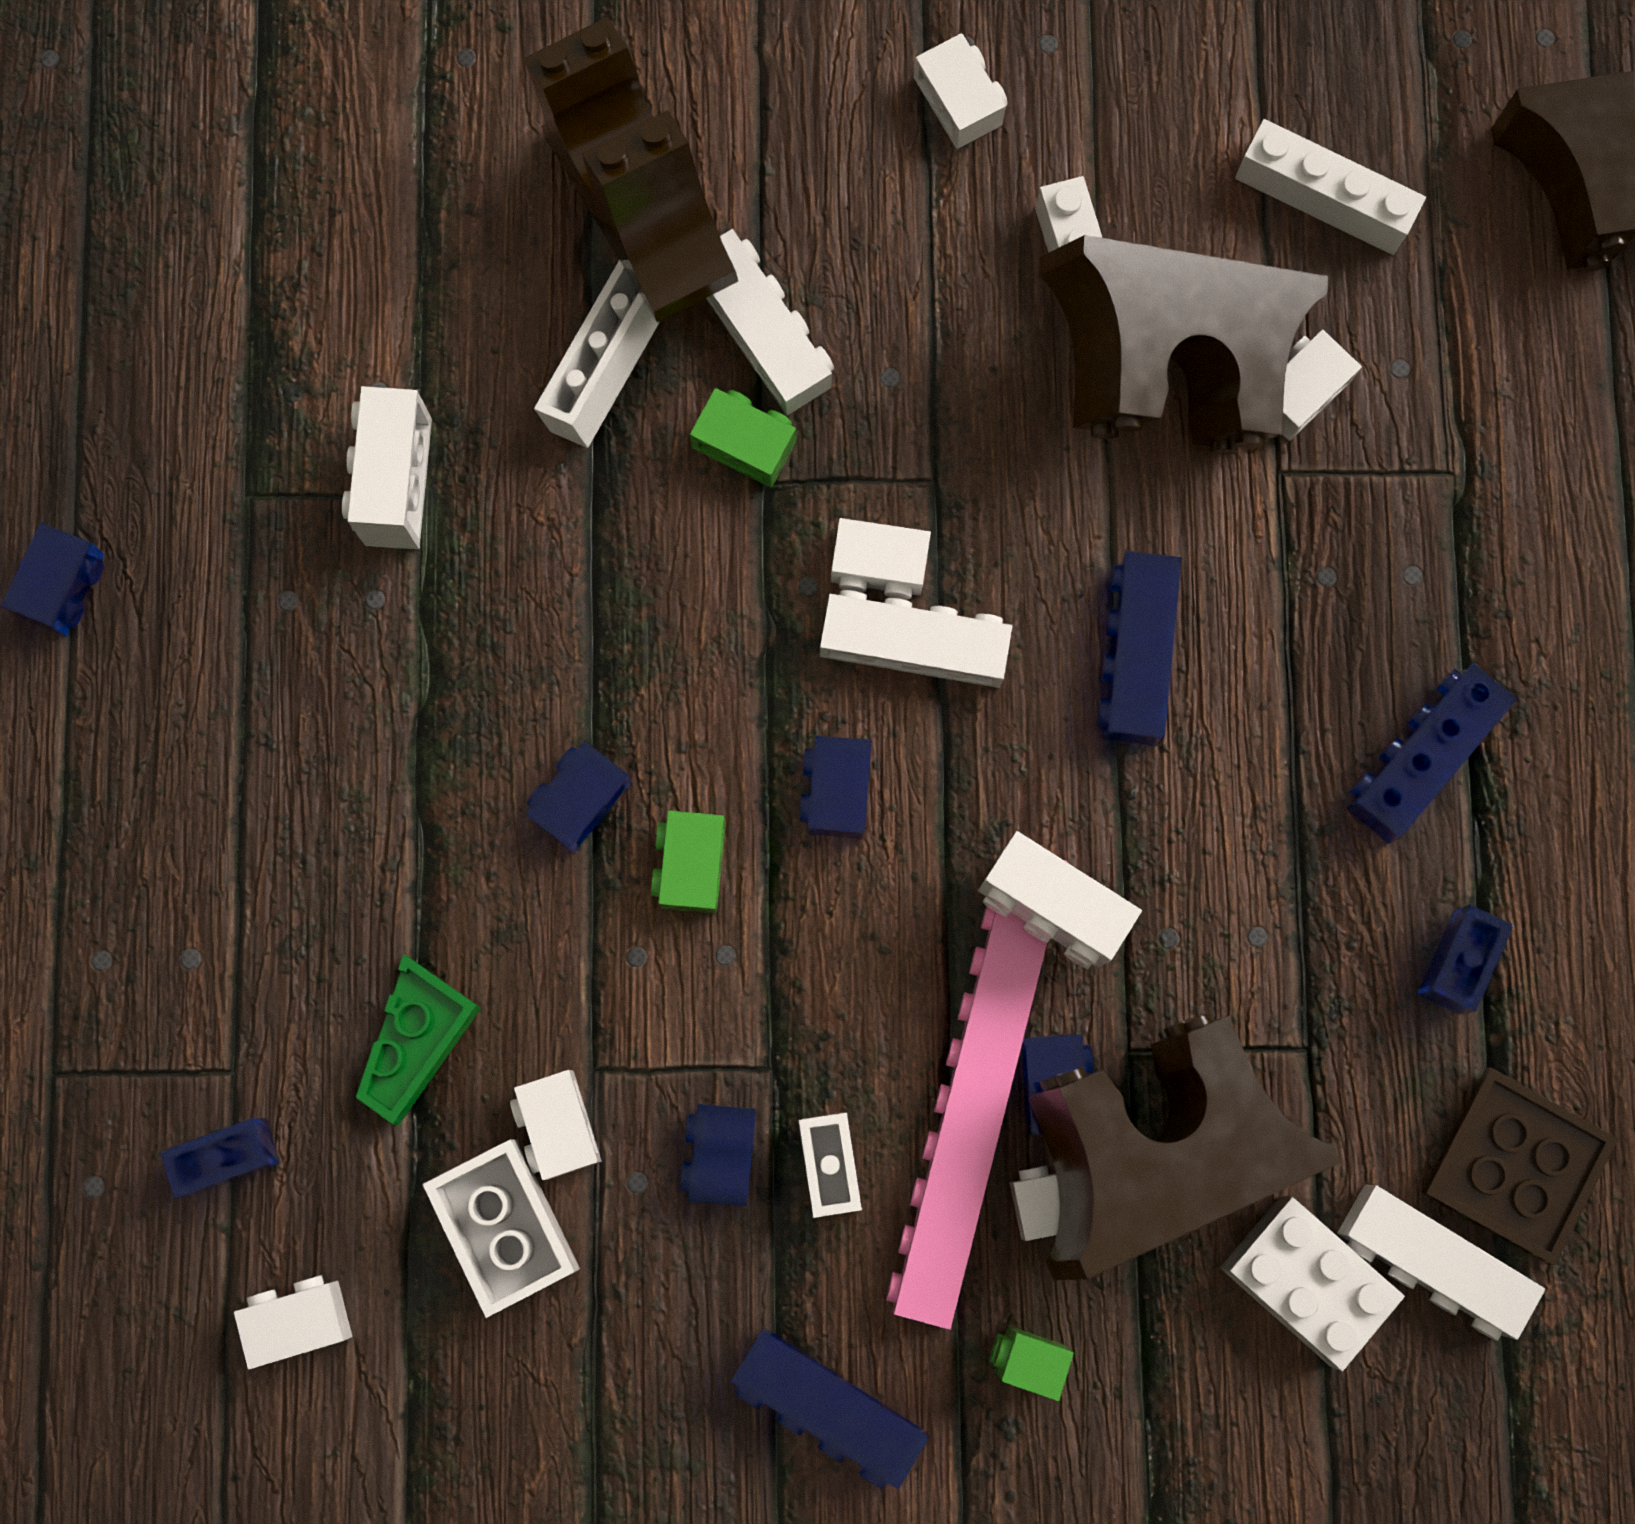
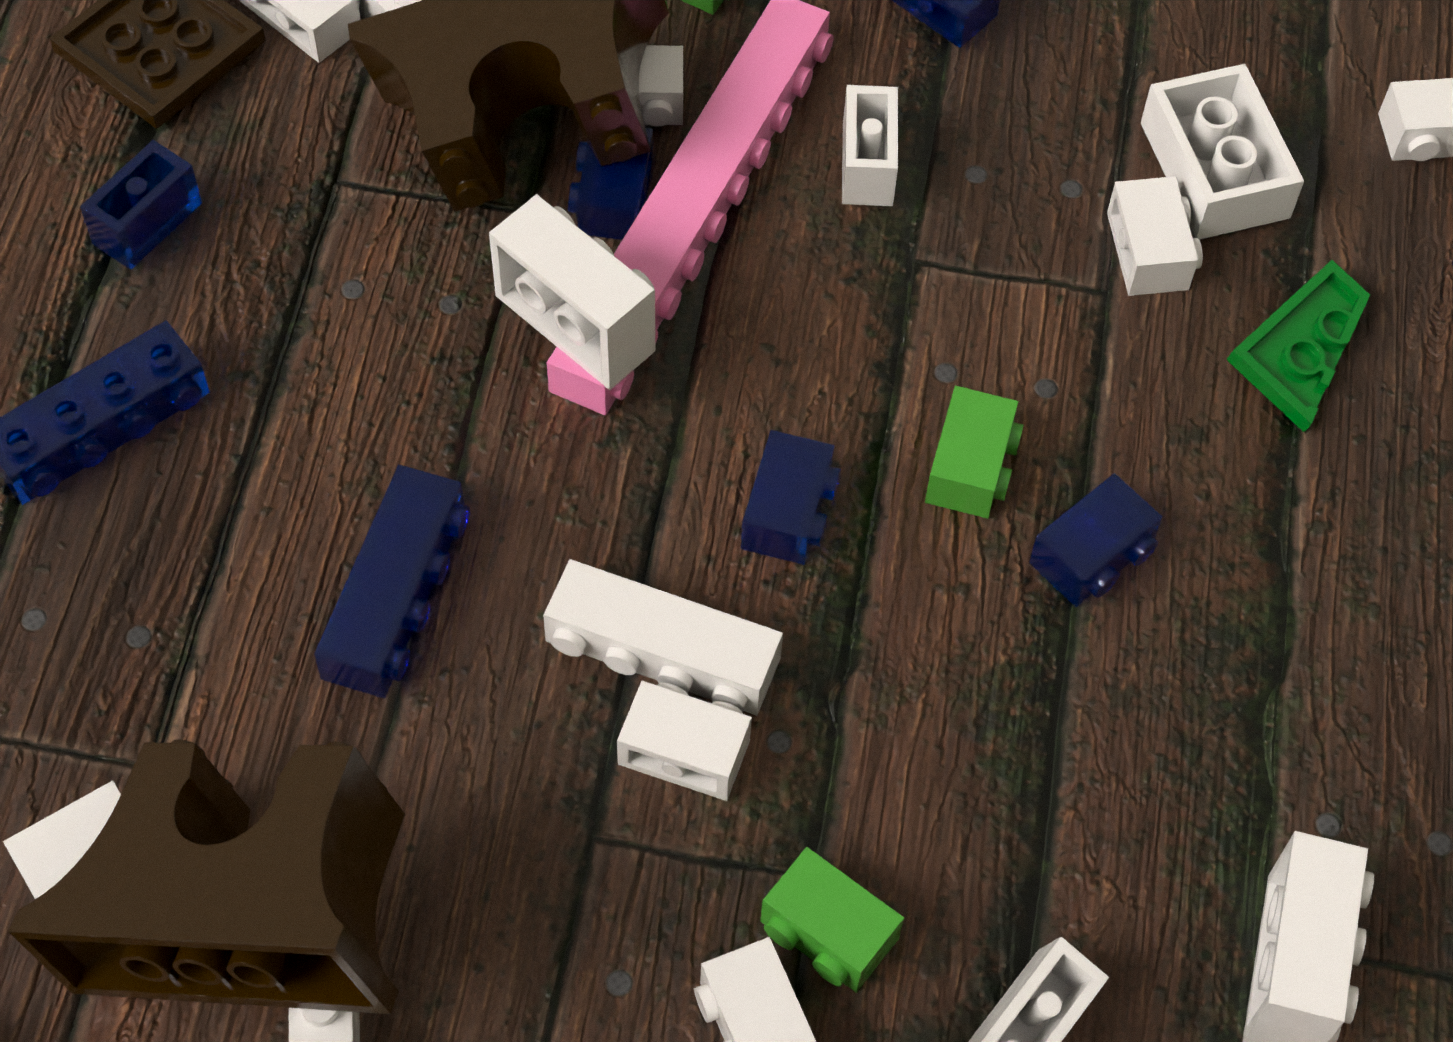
camera: 170 degrees left, 20 degrees down
(721, 1155) = (980, 182): clear blue brick -> none

